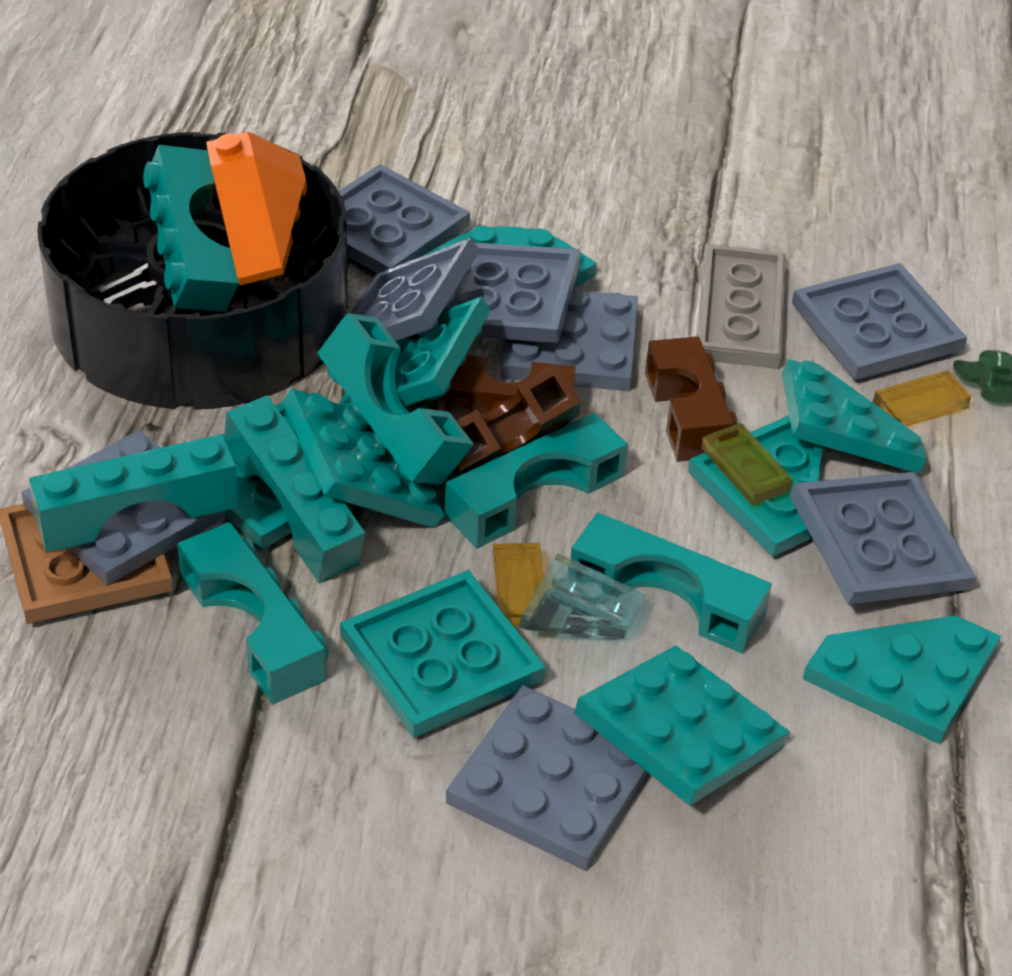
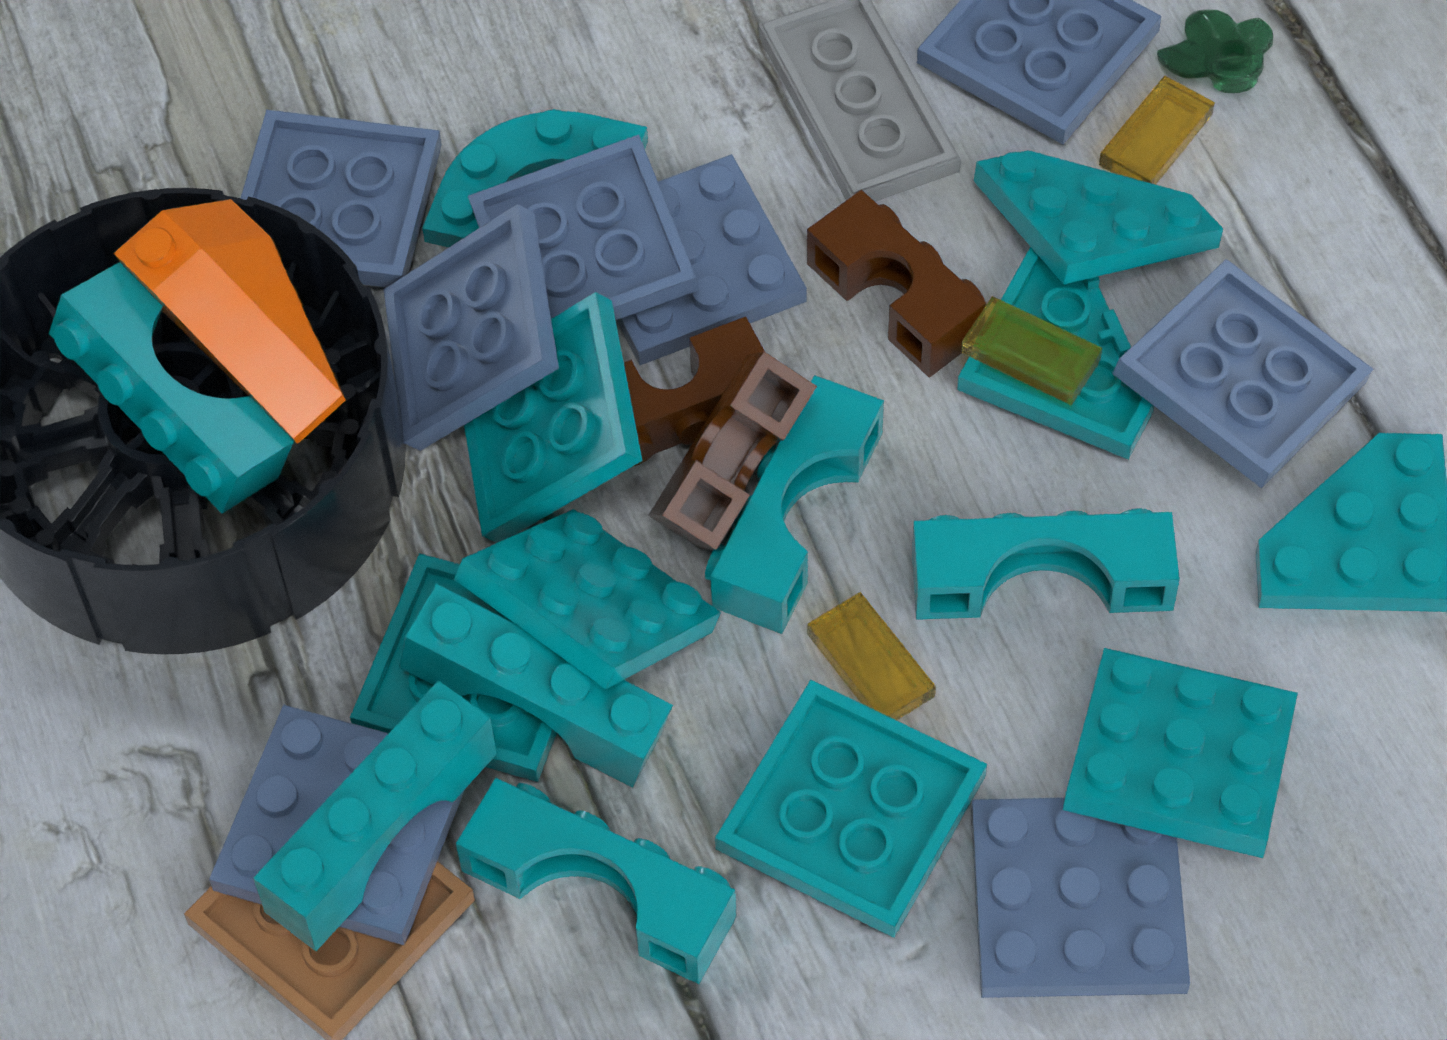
camera: 25 degrees left, 15 degrees up
(363, 362) = (516, 469): teal arch -> none
(581, 602) = (966, 651): clear light blue wing -> none

